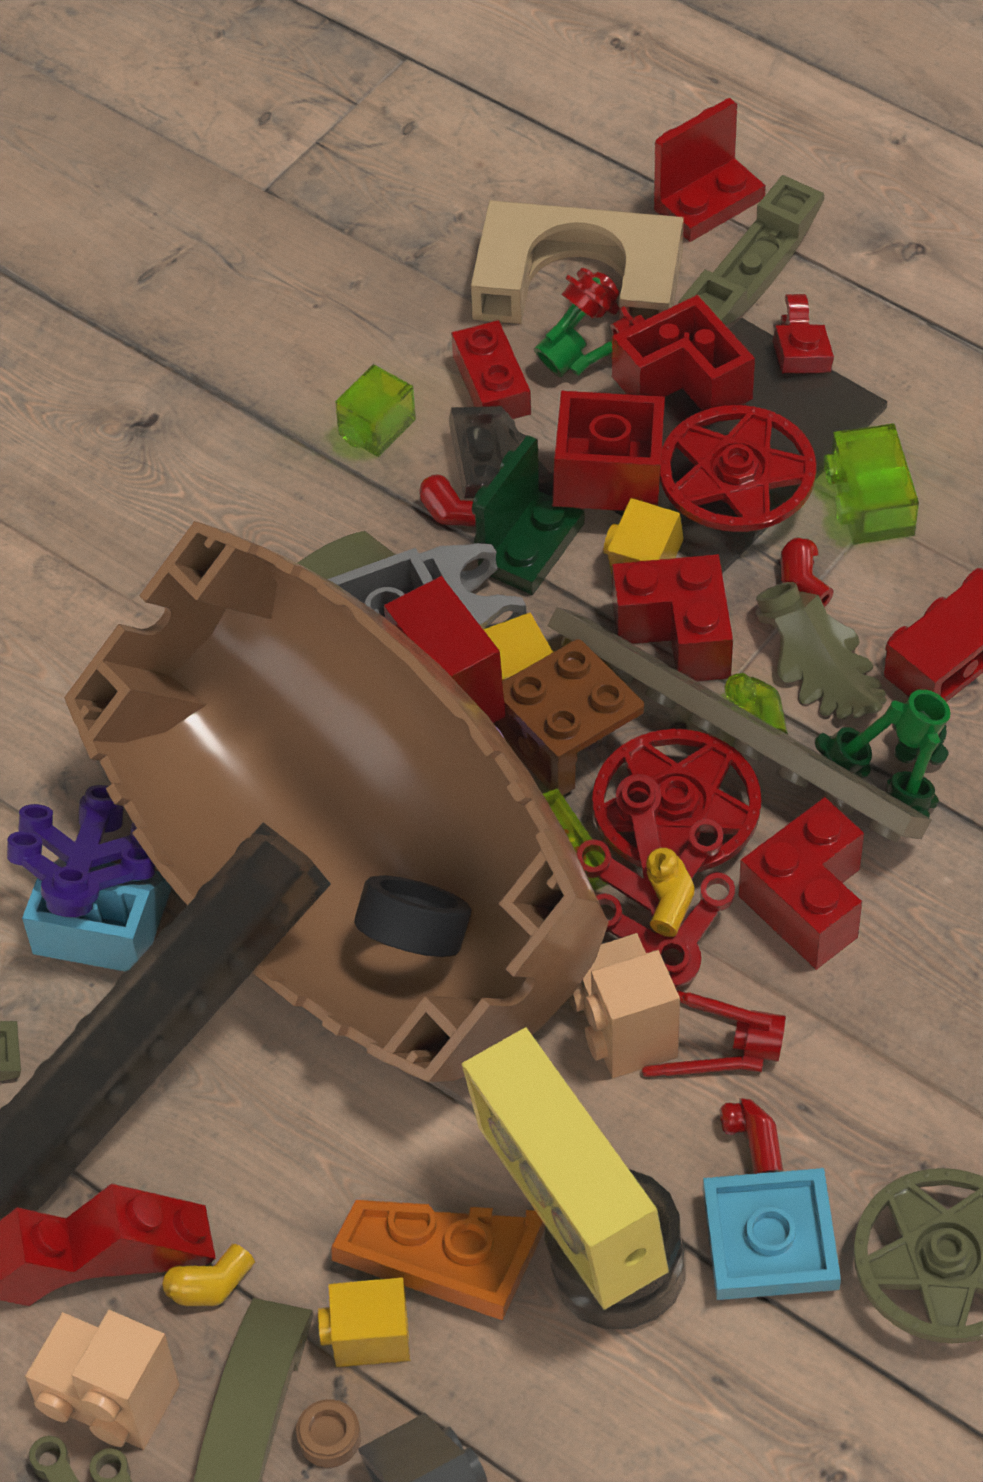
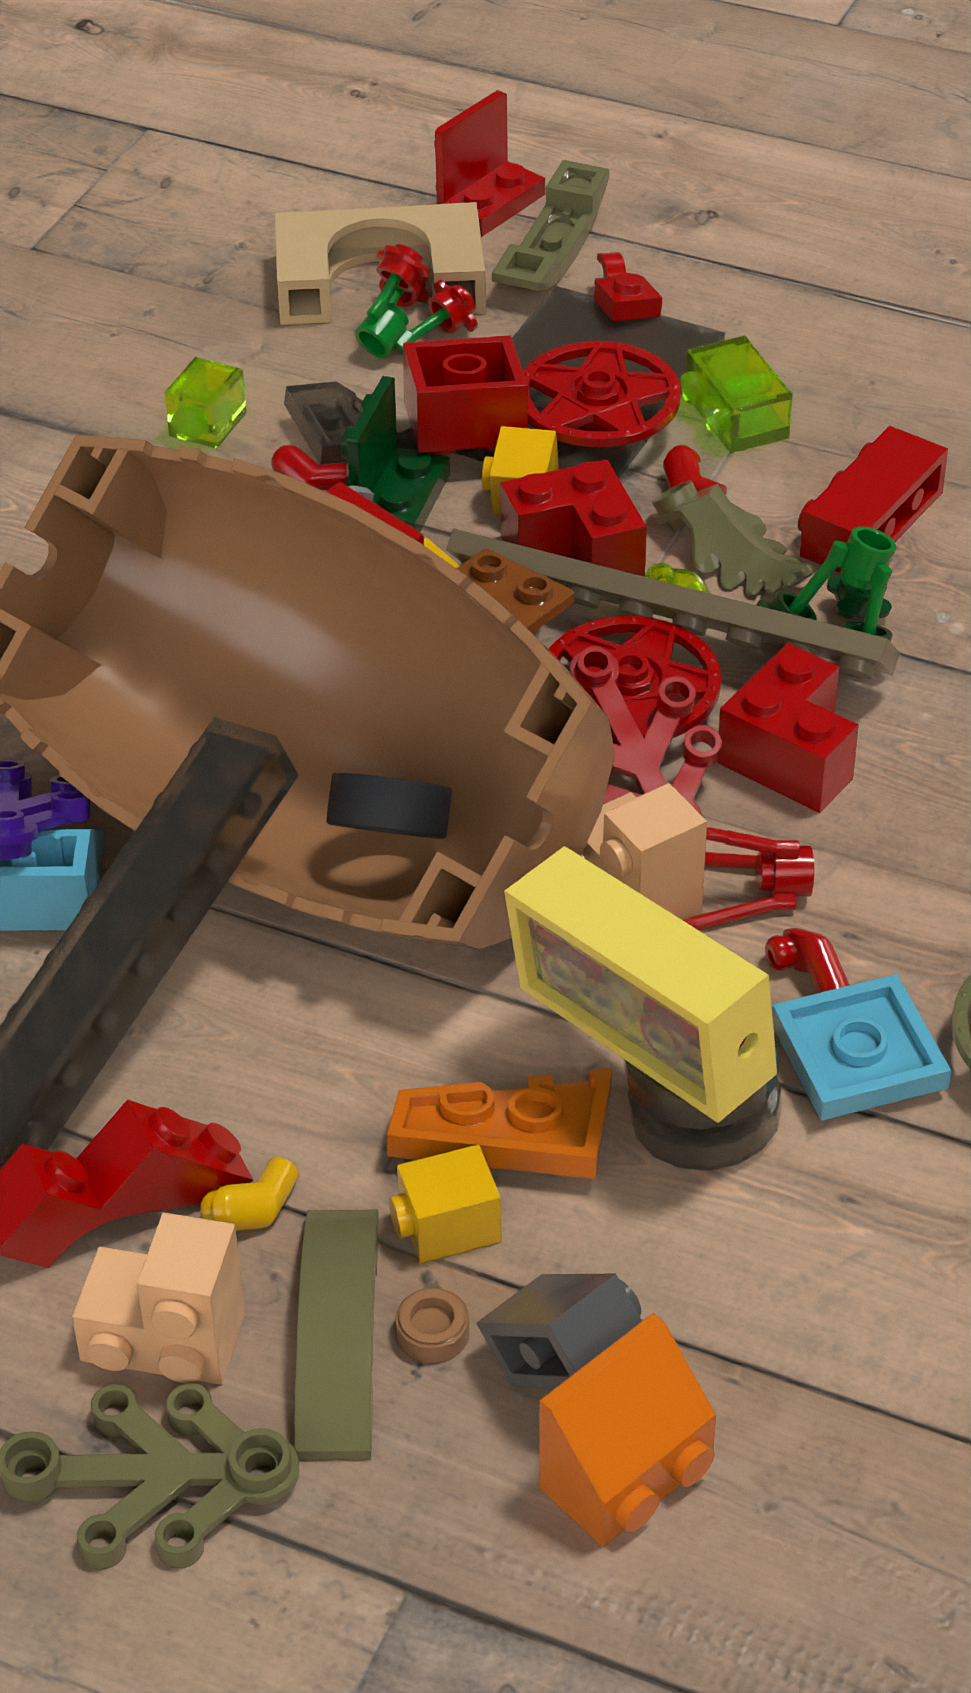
camera: 15 degrees left, 10 degrees down
(491, 369) = (314, 353): red piece -> none
(673, 889) = (654, 744): yellow arm -> none
(685, 351) = (521, 301): red brick -> none

